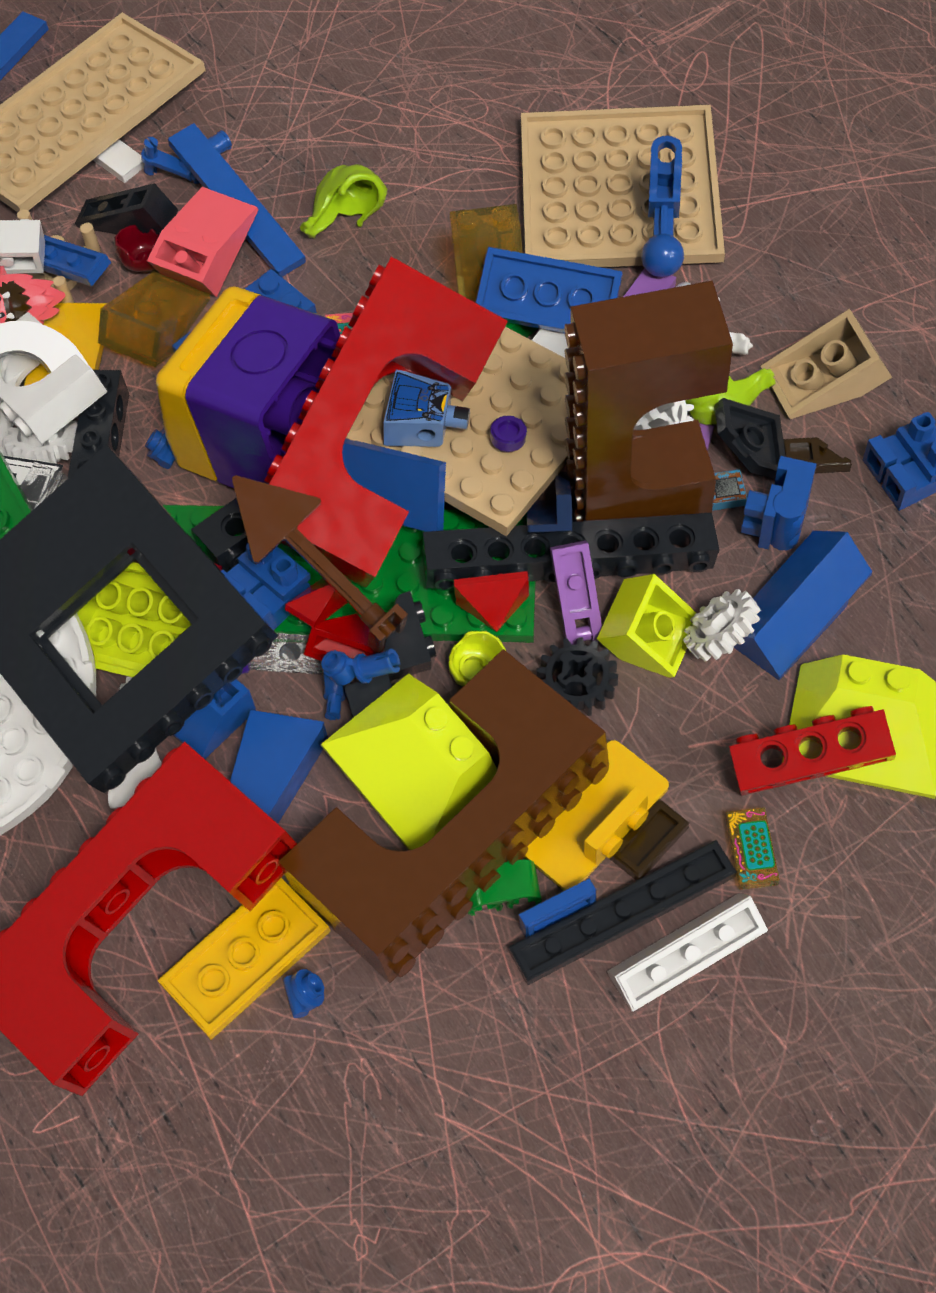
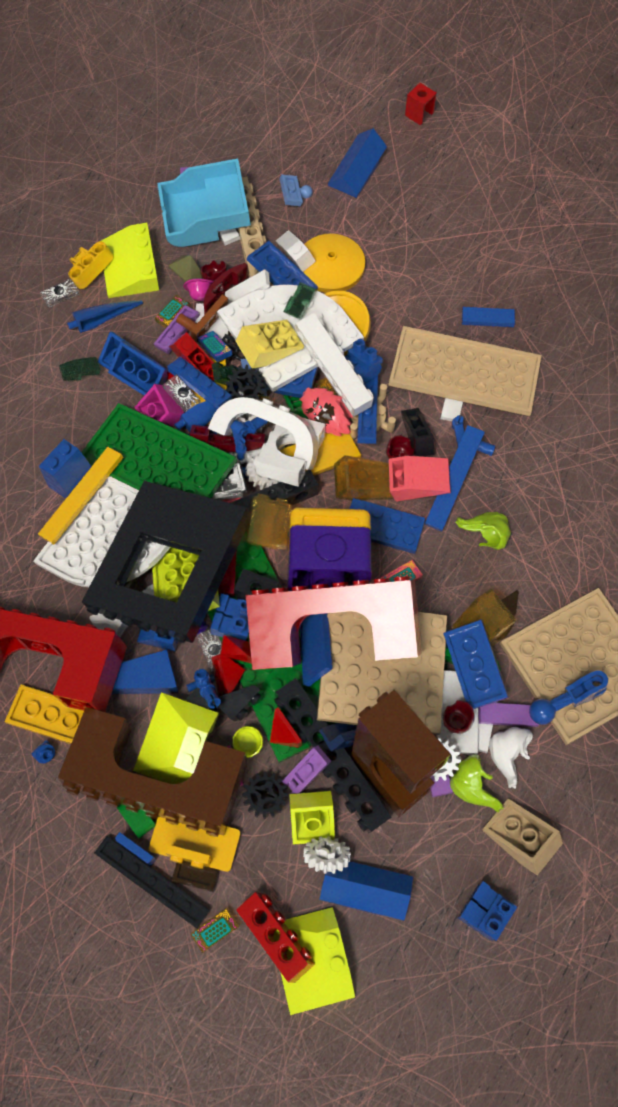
camera: 55 degrees right, 5 degrees up
(151, 451) = (268, 522): none -> clear yellow slope
(273, 515) = (247, 605): reddish brown piece -> none
(420, 412) = (355, 641): torso -> none
(508, 433) = (372, 690): dark purple tile -> none
(687, 951) = (146, 923): white slope -> none
(729, 490) = (417, 817): tile -> none
(751, 435) = (453, 817): black plate -> none
(781, 513) = (416, 858): blue hips -> none
(817, 452) = (463, 853): dark brown tile -> none

